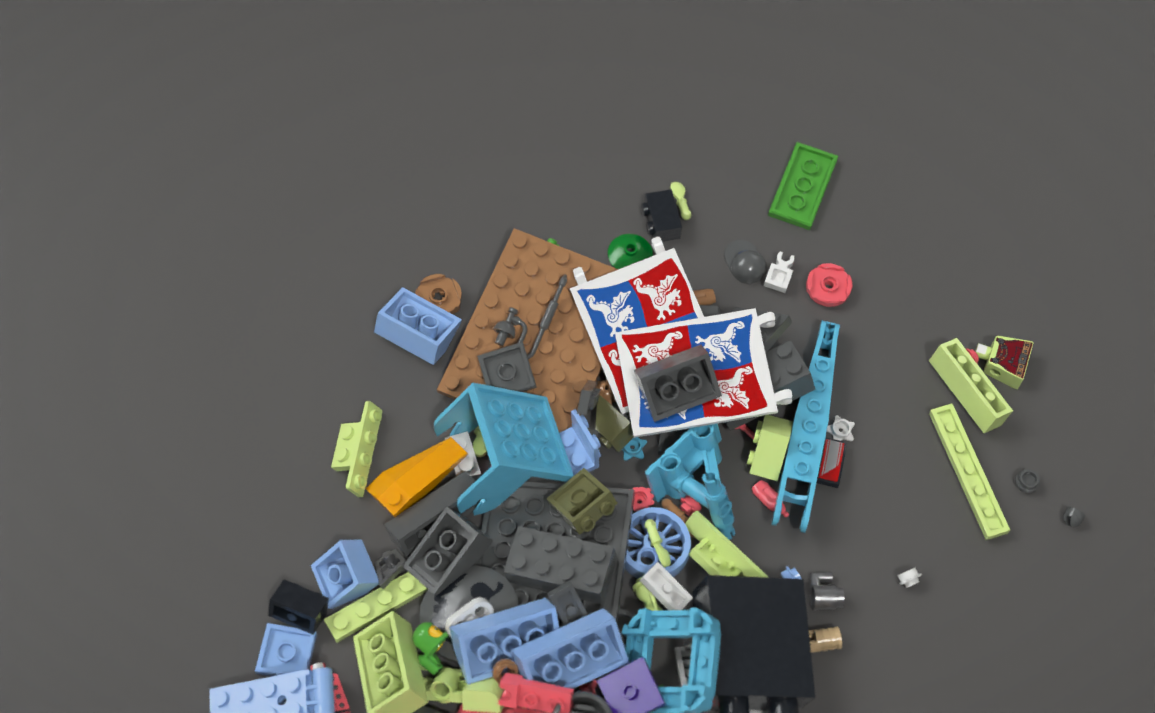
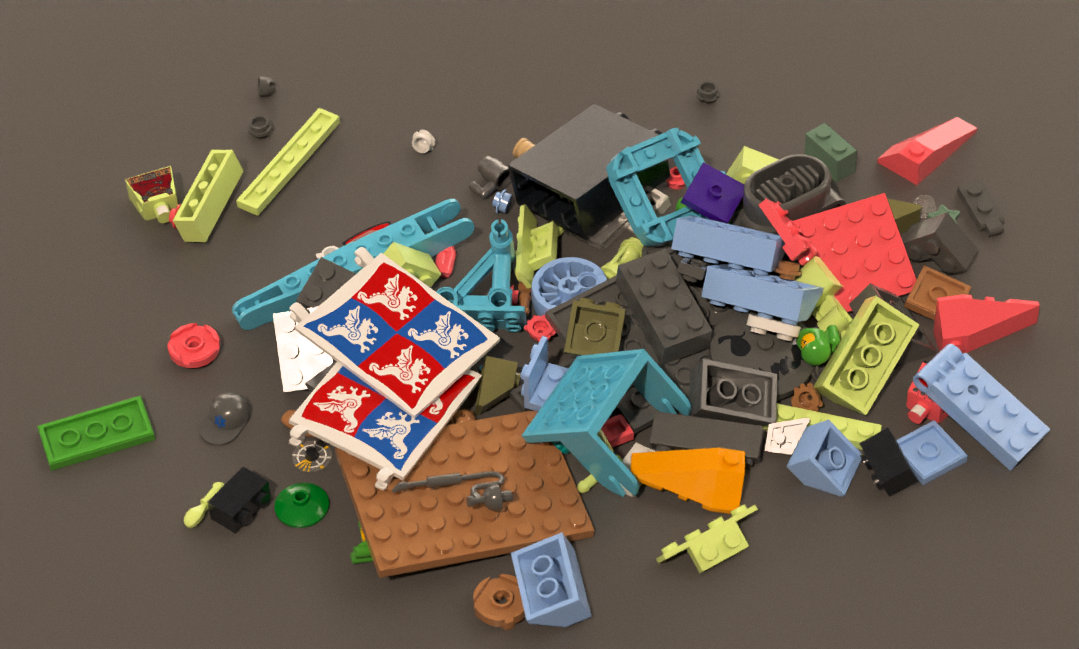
camera: 125 degrees left, 15 degrees down
(409, 612) = (802, 397): none -> medium nougat animal
(508, 368) = (529, 474): dark grey plate -> none
(589, 397) = (499, 386): dark grey plate -> none
(656, 541) = (571, 277): yellowish green piece -> none
(665, 588) = (603, 248): white plate -> none
(678, 382) = (422, 328): dark grey slope -> none
(780, 274) = (217, 382): white plate -> none

